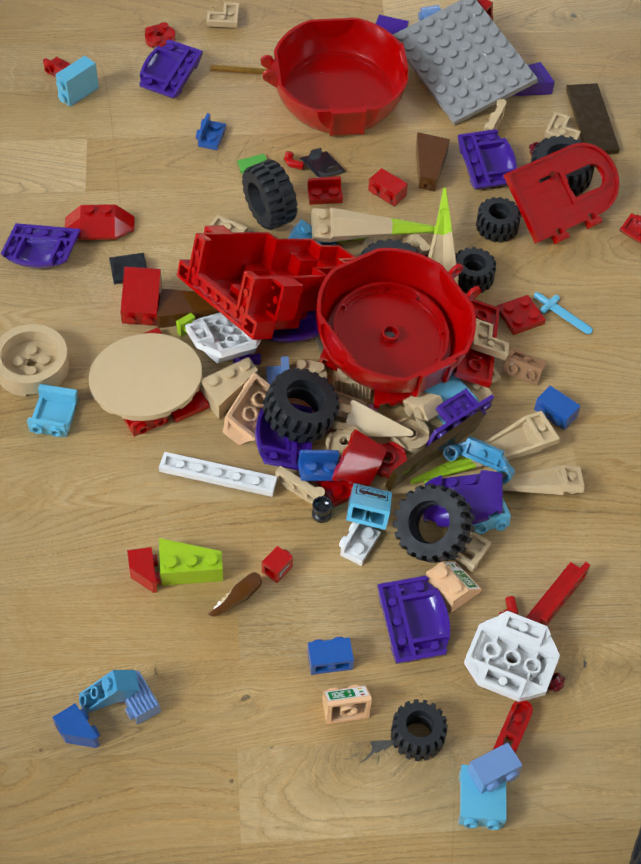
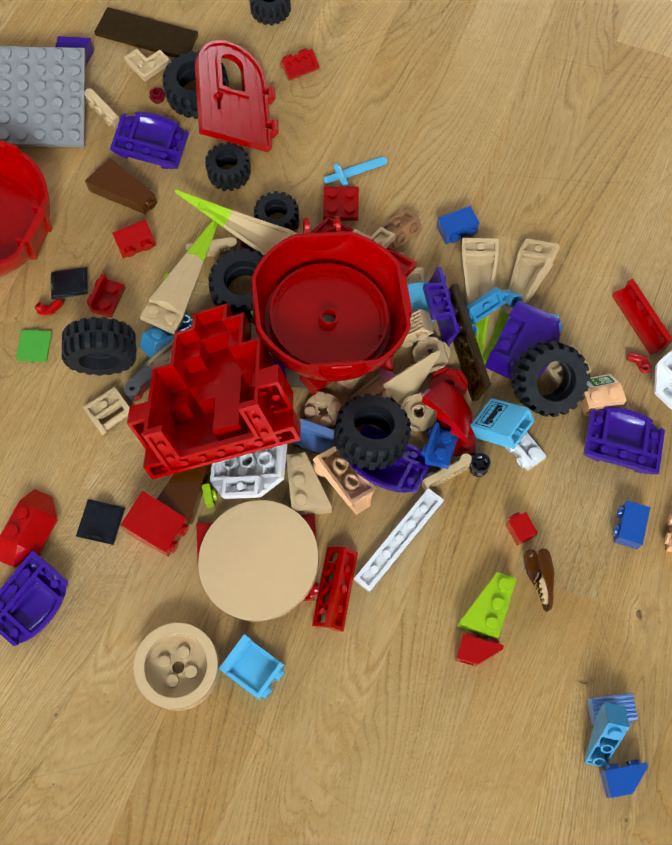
camera: 60 degrees left, 15 degrees up
(150, 445) = (339, 588): none -> red fence

